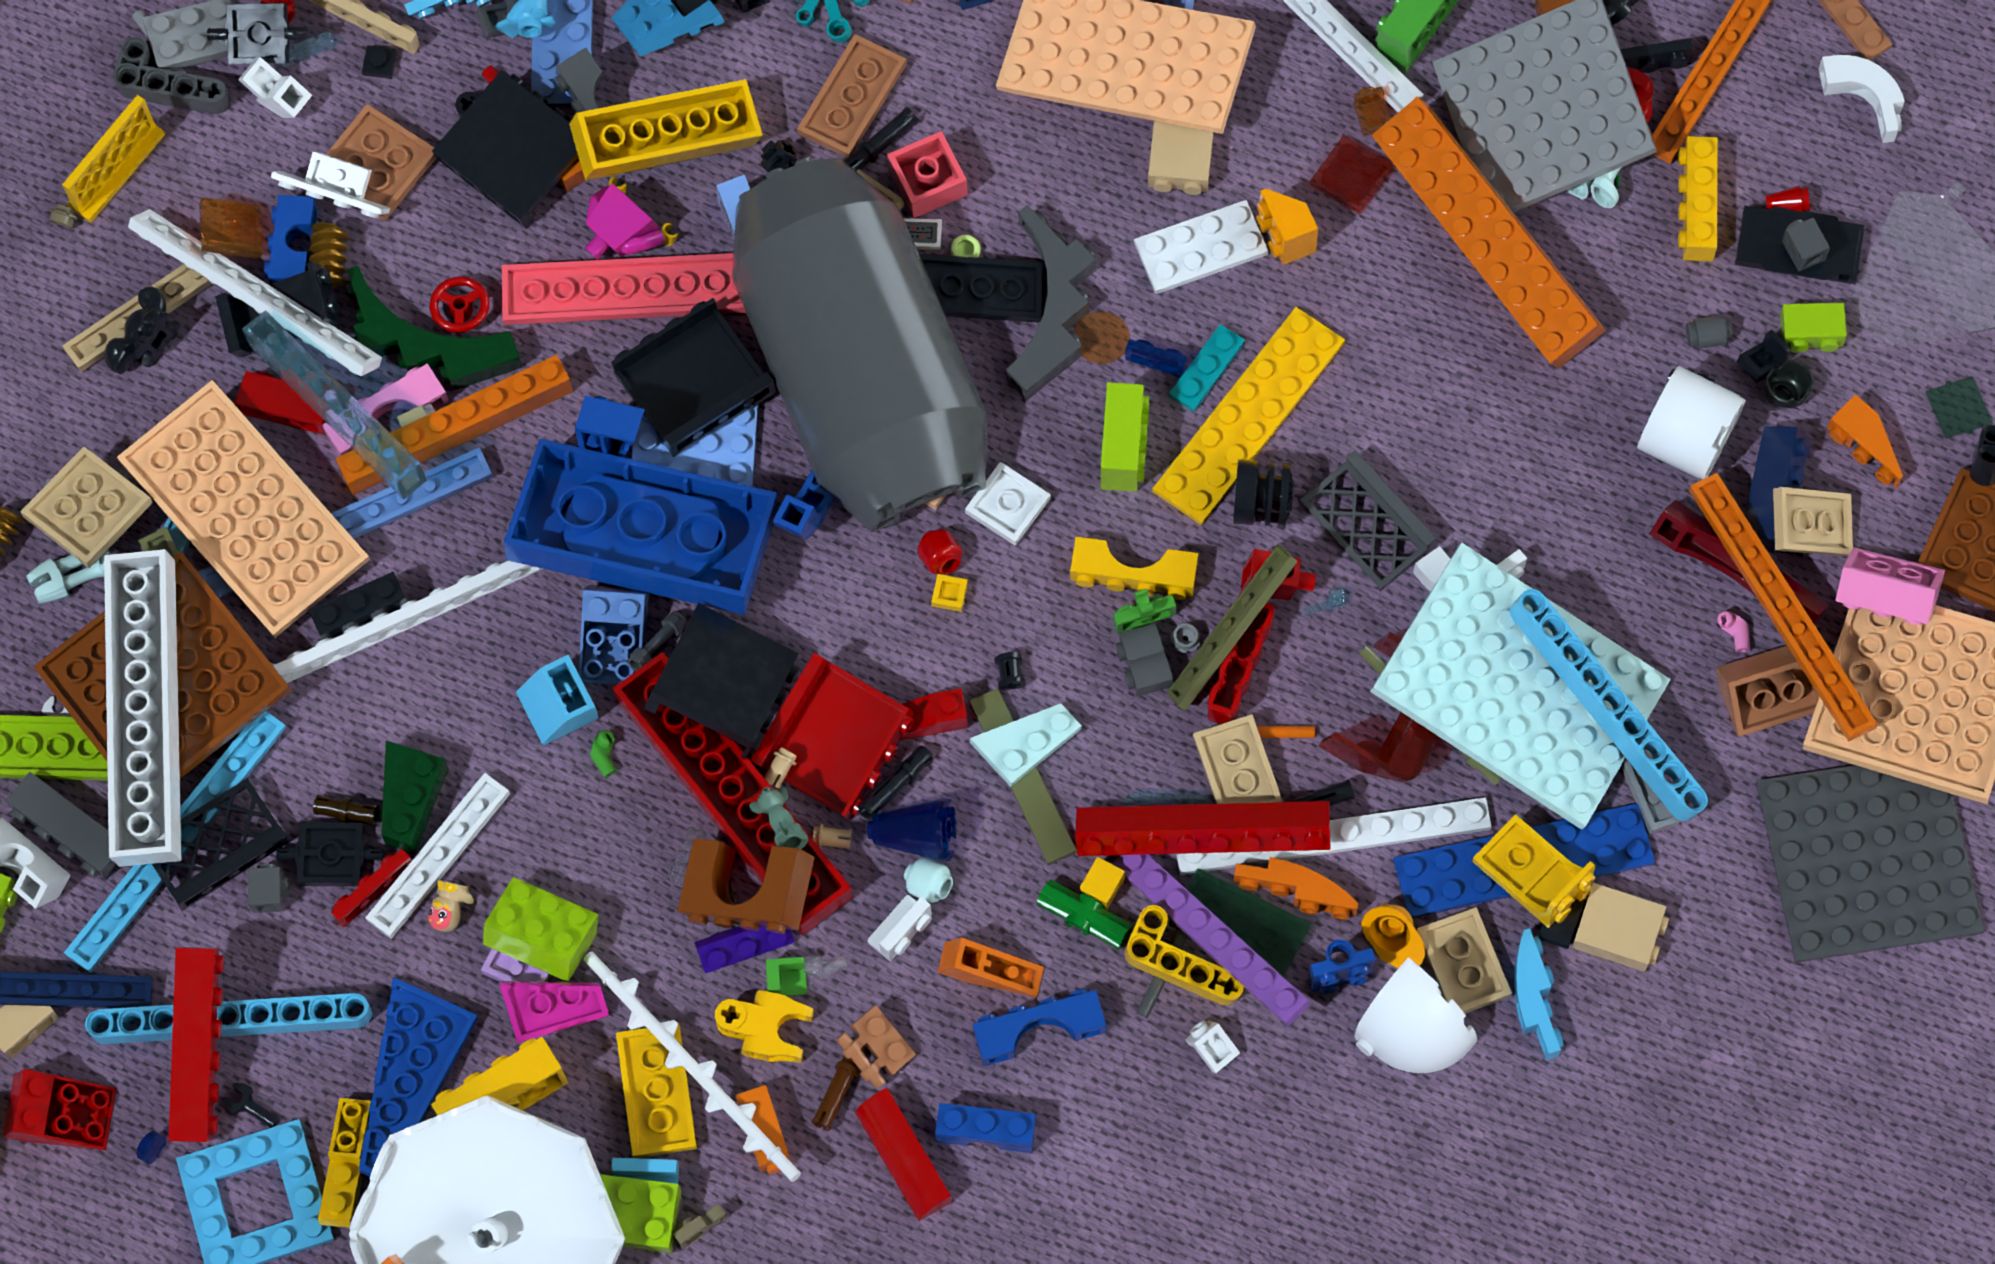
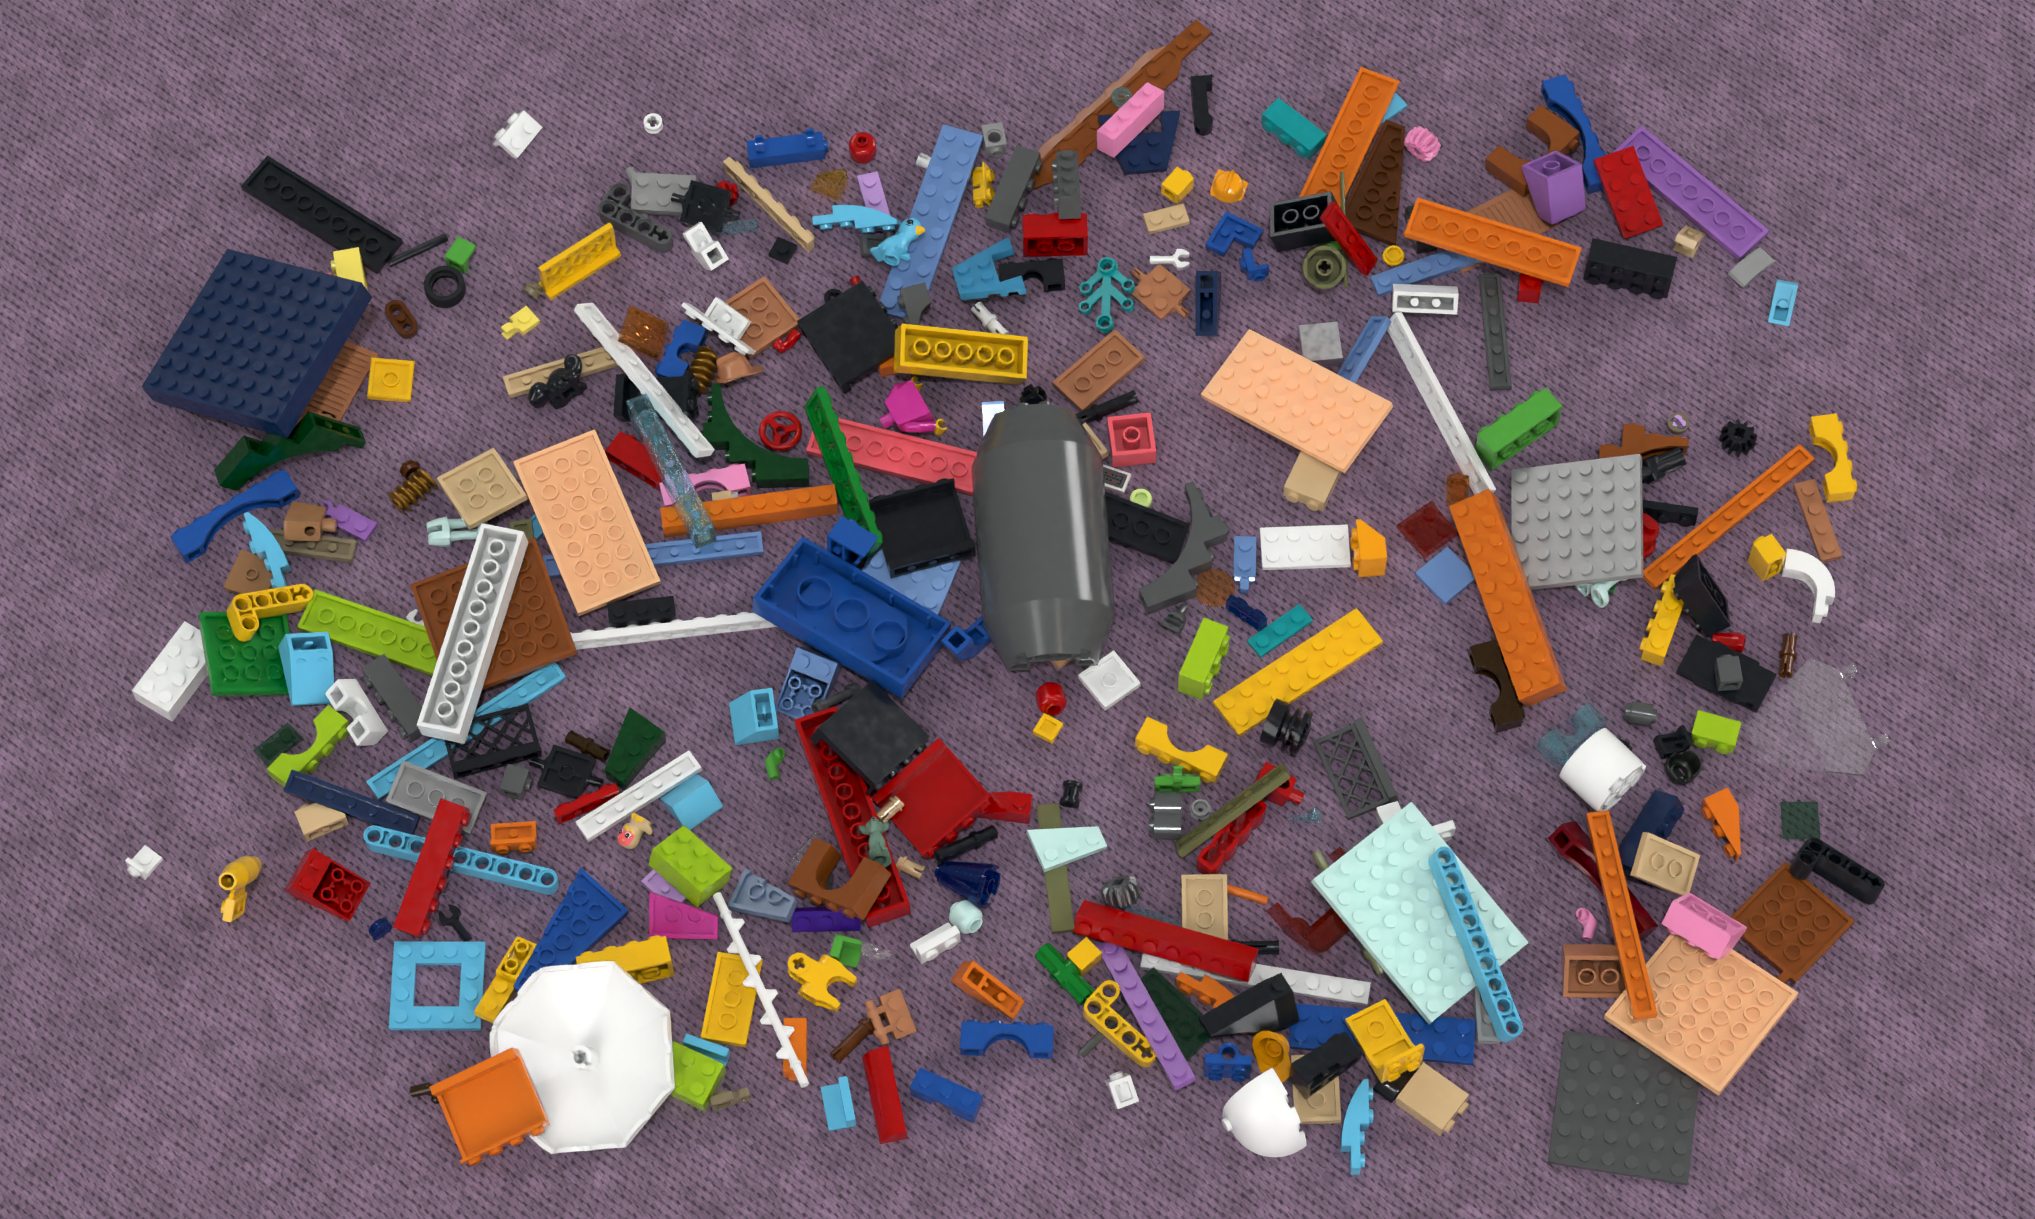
camera: 15 degrees right, 5 degrees down
(61, 263) = (521, 322): none -> light yellow plate
(146, 941) = (421, 789): none -> light grey plate
(289, 964) = (513, 837): none -> orange bracket
(368, 238) = (734, 366): none -> nougat piece
(429, 183) = (788, 343): none -> red arm
(512, 840) = (692, 801): none -> medium azure slope
(555, 323) = (840, 464): none -> green plate
(649, 943) = (761, 899): none -> sand blue wing
(684, 72) = (988, 320): none -> white pin
(847, 1187) = (838, 1105): none -> medium azure panel
(1067, 394) = (1176, 619): none -> dark grey piece
(1121, 781) = (1120, 891): none -> flat silver gear
(1129, 290) = (1244, 562): none -> medium blue hinge
(1360, 879) = (1259, 1008): none -> black wedge
(1396, 228) = (1446, 576): none -> medium blue tile
(1466, 927) = (1324, 1064): none -> black wedge
(1490, 324) = (1488, 661): none -> dark brown arch
(1619, 409) = (1558, 747): none -> clear light blue arch
(1738, 155) = (1702, 597): none -> black slope
(1800, 76) = (1766, 557): none -> yellow brick
(1869, 196) = (1788, 655): none -> reddish brown pin

